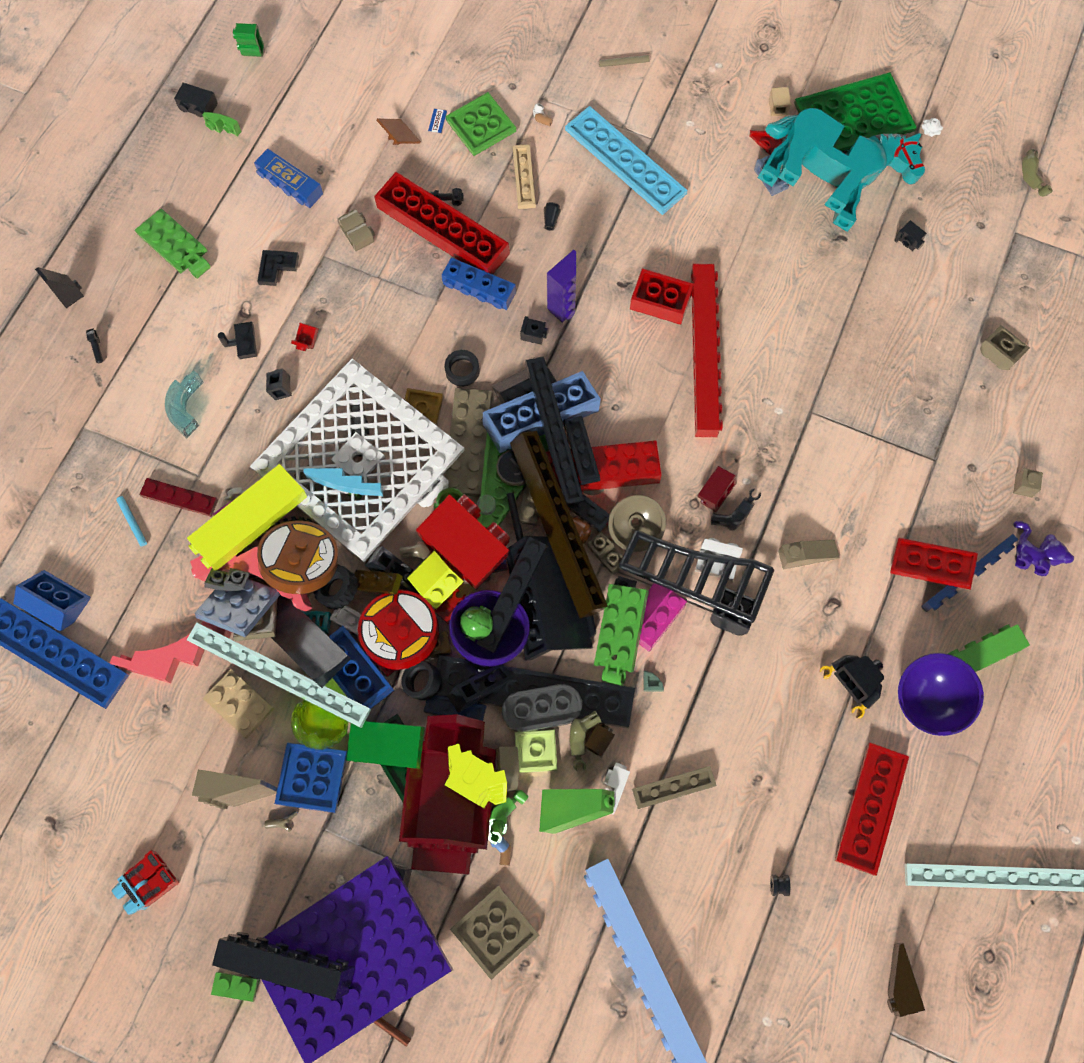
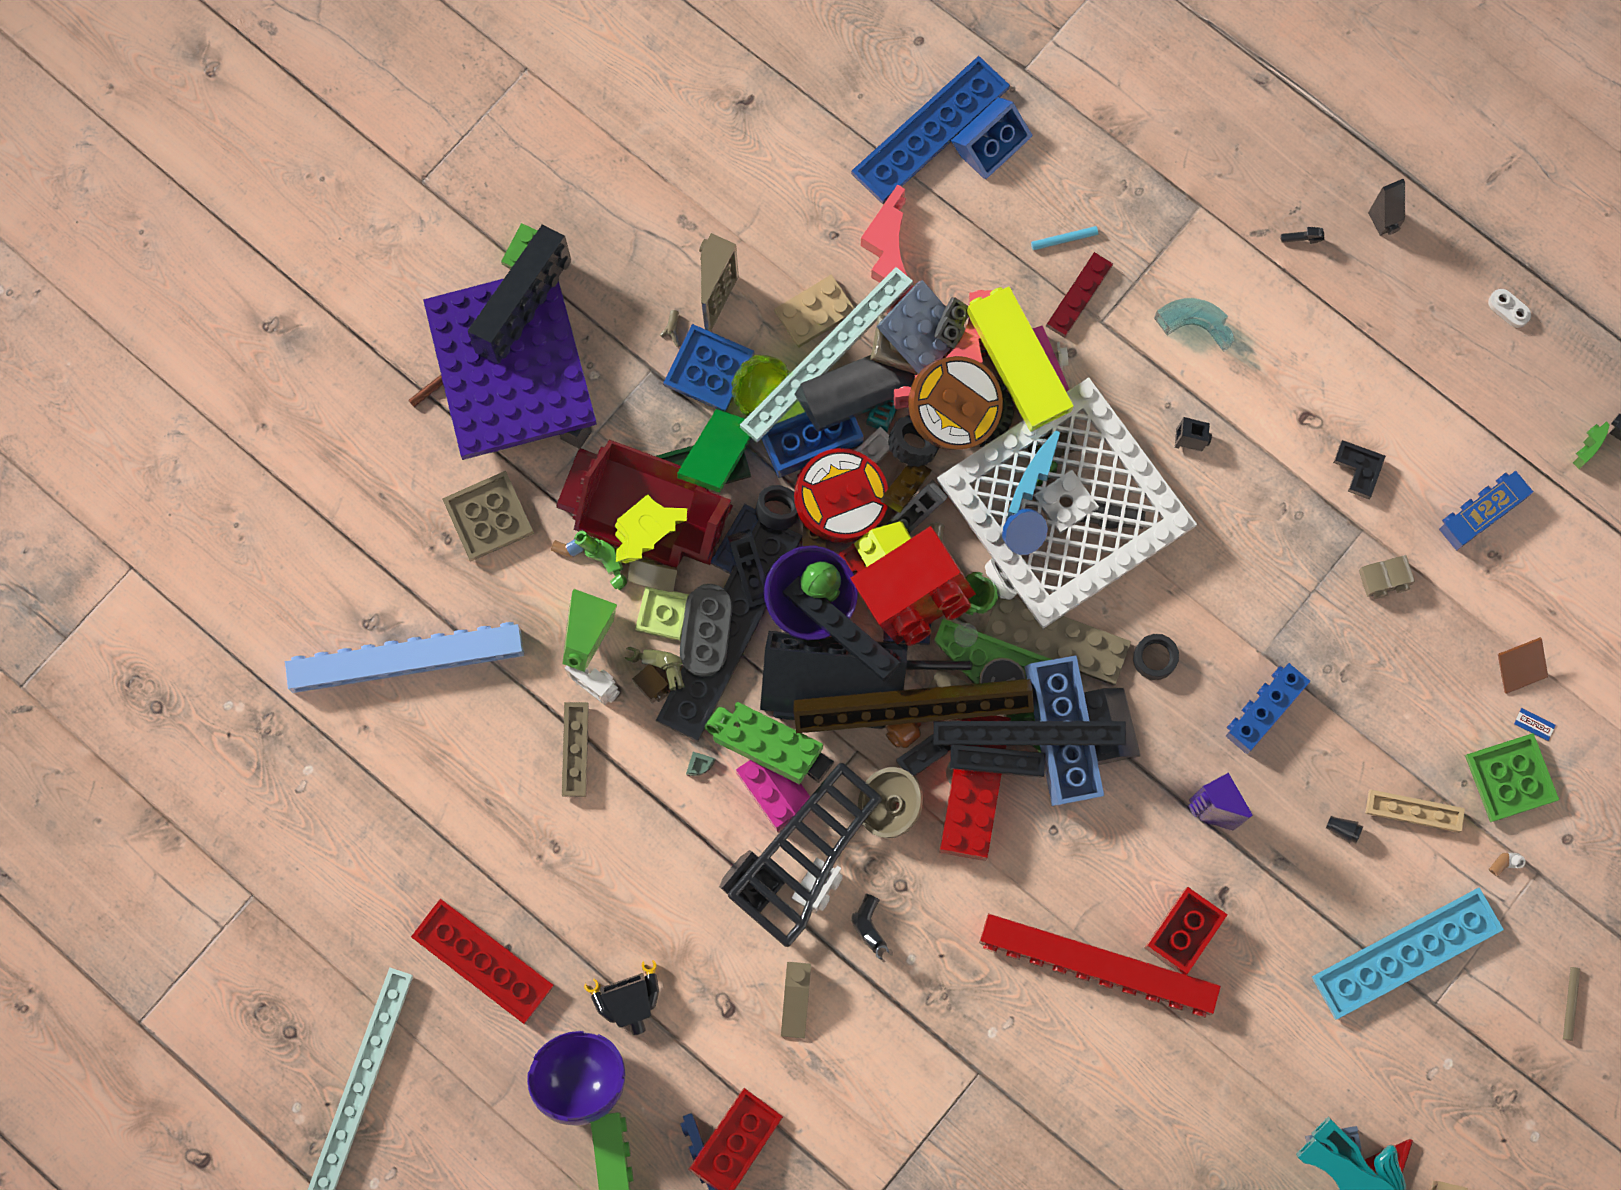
camera: 105 degrees right, 5 degrees up
(127, 197) = (1508, 309): none -> white plate
(145, 883) = (649, 173): hips -> none
(174, 243) = (1424, 352): bright green hinge -> none
(243, 340) = (1266, 409): black plate -> none
(305, 337) = (1247, 479): red bracket -> none
(393, 475) = (1024, 531): none -> blue tile
(426, 403) = (1118, 599): pearl gold tile -> none
(441, 224) = (1363, 683): red brick -> none
(456, 196) = (1405, 715): black bar -> none
(533, 331) = (1187, 749): black brick -> none
(605, 552) = (869, 759): dark tan slope -> none
(717, 488) = (908, 916): dark red hinge -> none
(780, 885) = (435, 828): black wheel -> none
(902, 988) = (286, 921): dark brown slope -> none

